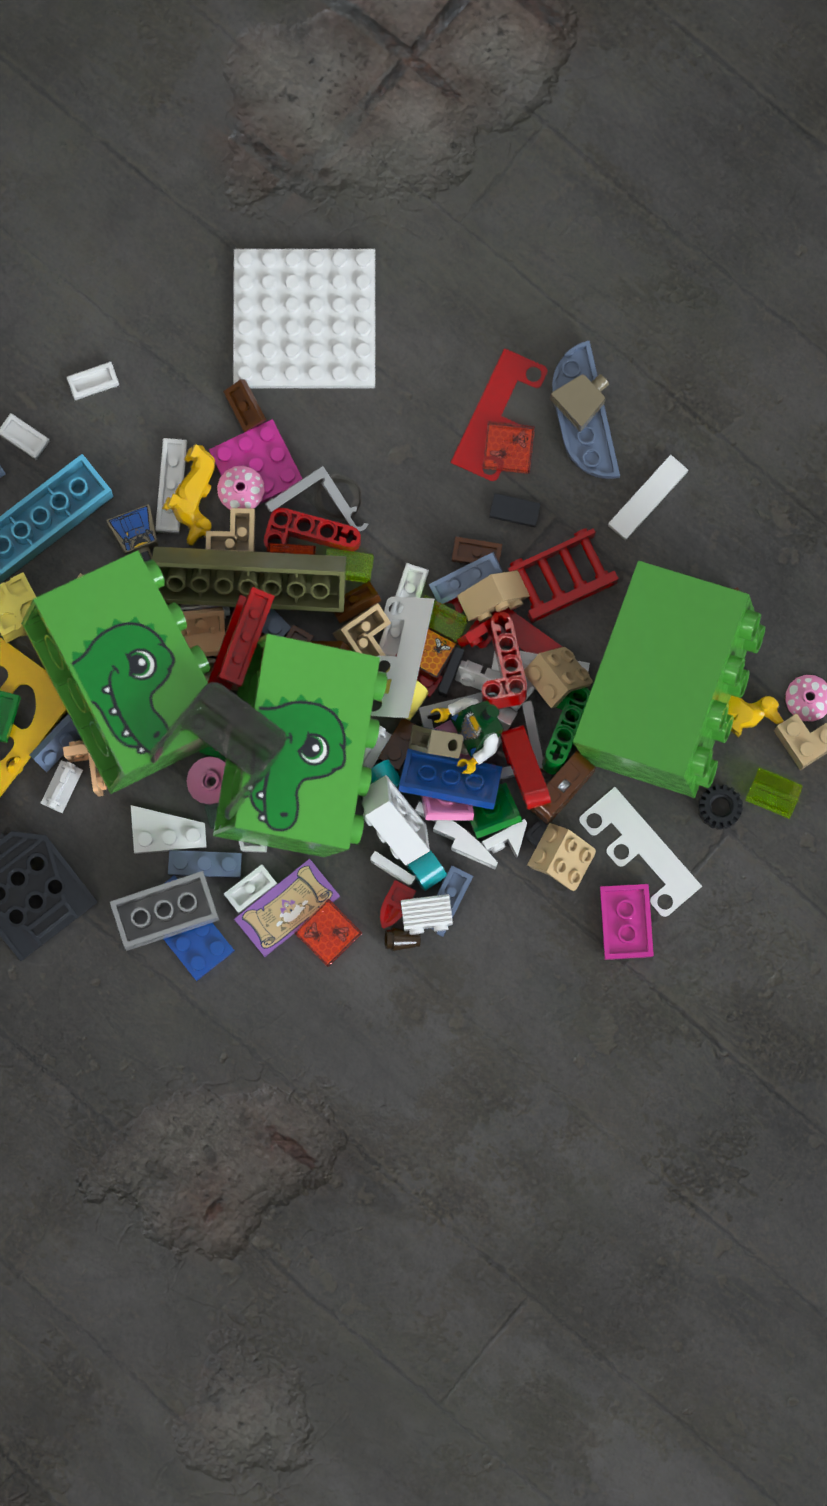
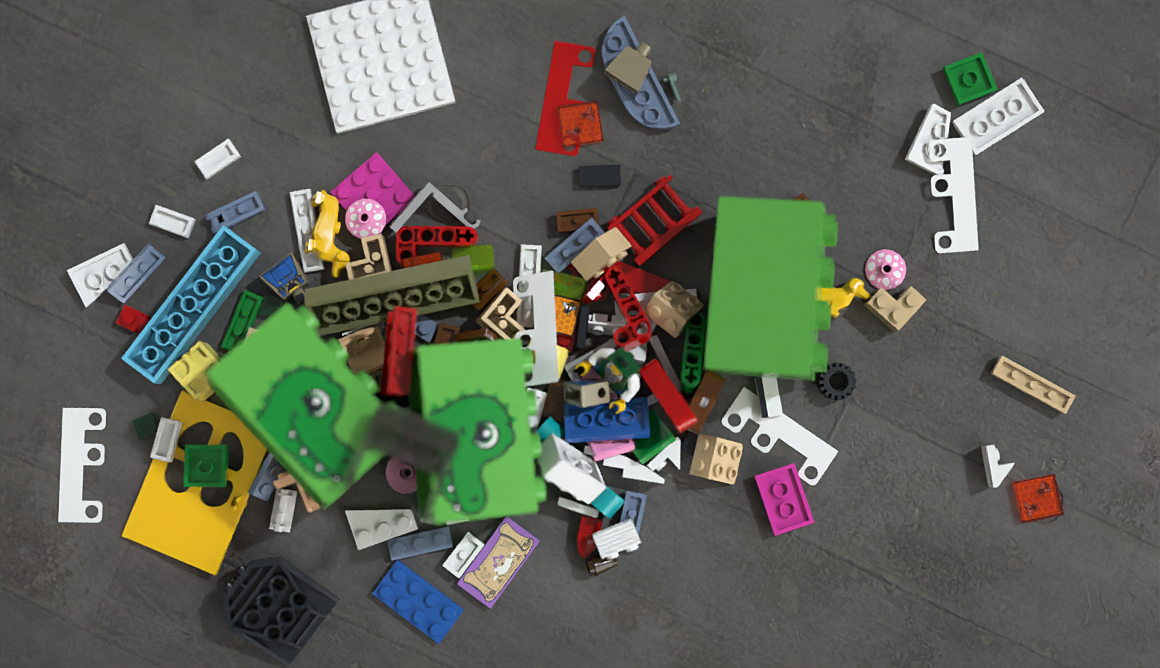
camera: 10 degrees left, 5 degrees up
(74, 563) = (243, 319): none -> green tile
(98, 444) = (236, 211): none -> sand blue plate
(107, 555) = (271, 305): none -> clear green tile
(164, 911) = (396, 597): light grey brick -> none
(244, 405) = (350, 146): reddish brown plate -> none
(328, 932) = (538, 574): clear red tile -> none
(624, 423) = (672, 78): none -> sand green piece
(639, 804) = (768, 397): none -> white tile
(648, 497) = (707, 136): white tile -> none
(774, 793) = (878, 357): clear neon green panel -> none

